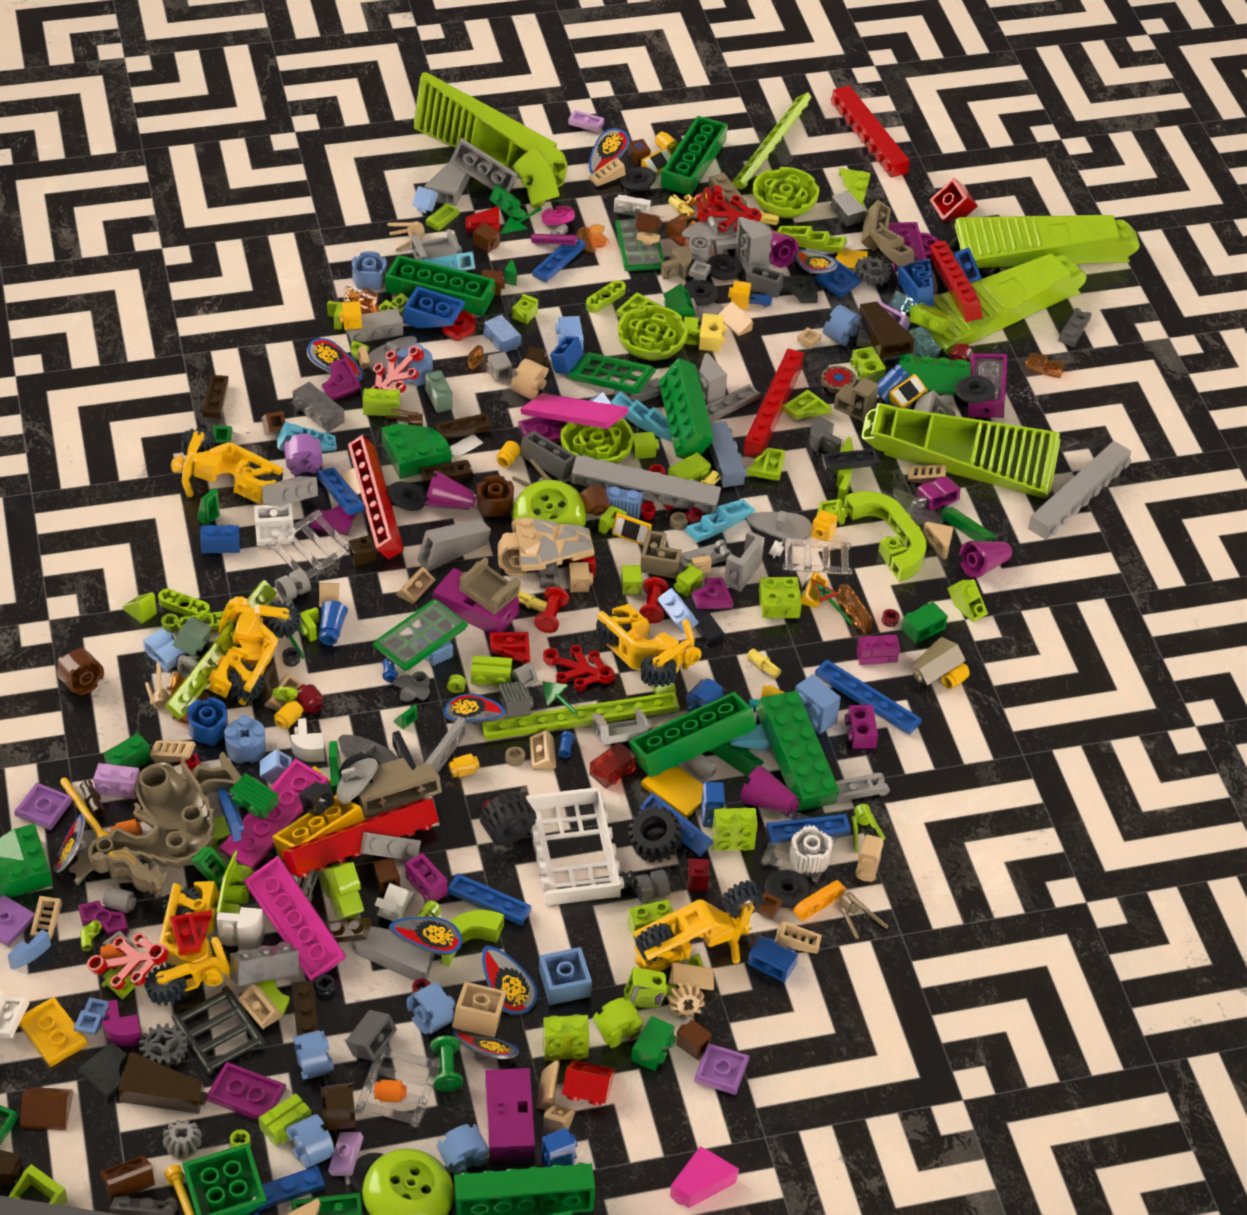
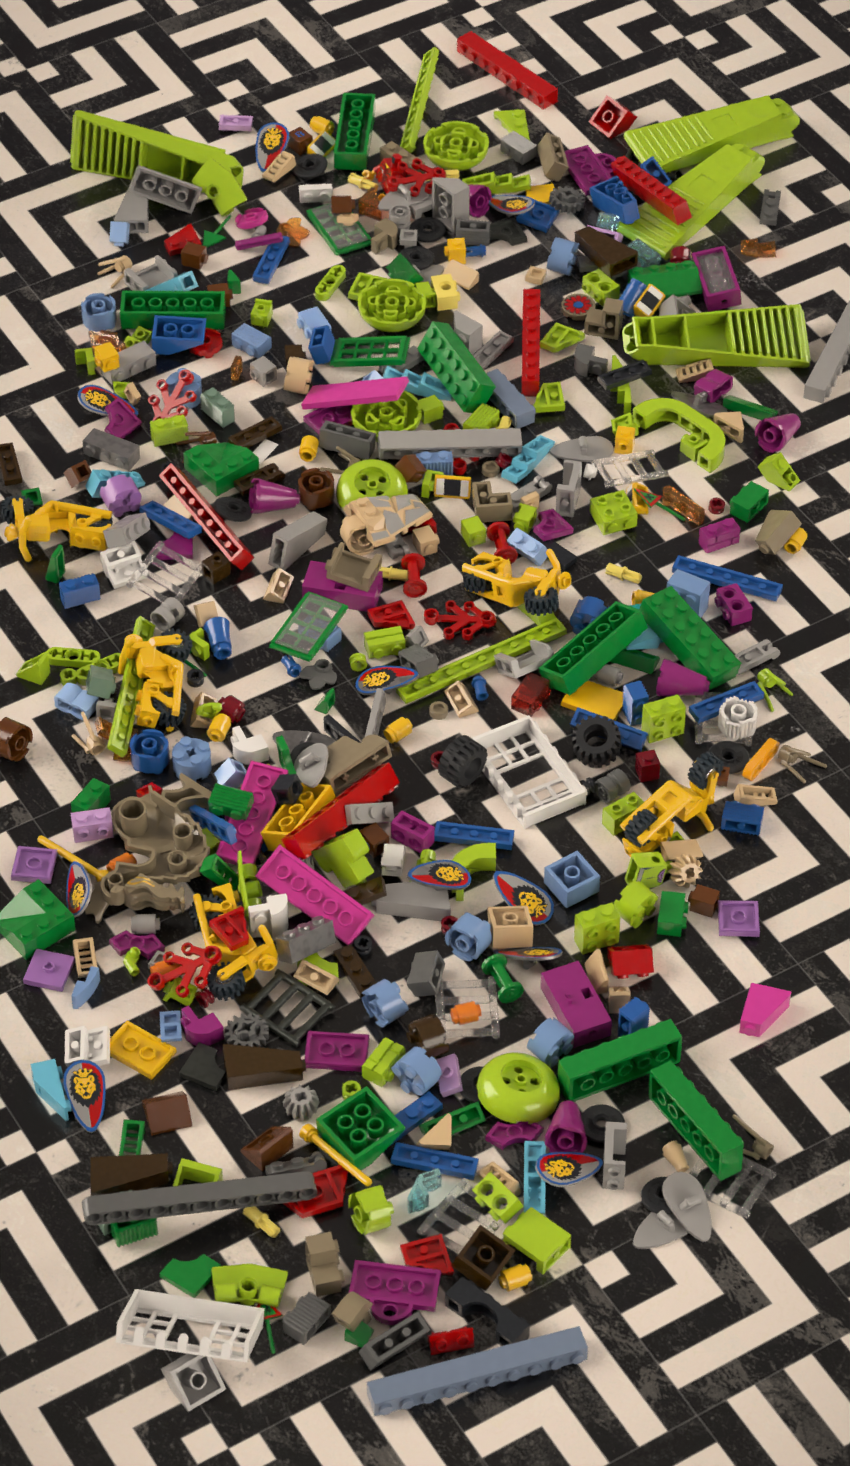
camera: 15 degrees left, 0 degrees up
(92, 798) = (75, 846): dark brown pin -> none
(140, 995) = (204, 997): none -> dark red bush
(171, 751) = (124, 787): tan slope -> none
(379, 354) = (147, 385): light grey shield -> none
(442, 216) = (141, 245): lime tile -> none
(507, 202) = (197, 217): green hinge -> none
(553, 691) = (447, 646): green piece -> none
(869, 858) = (790, 712): tan brick -> none
(893, 246) = (580, 172): dark tan slope -> none
(930, 318) = (641, 230): lime brick -> none
(985, 387) = (719, 285): black wheel -> none

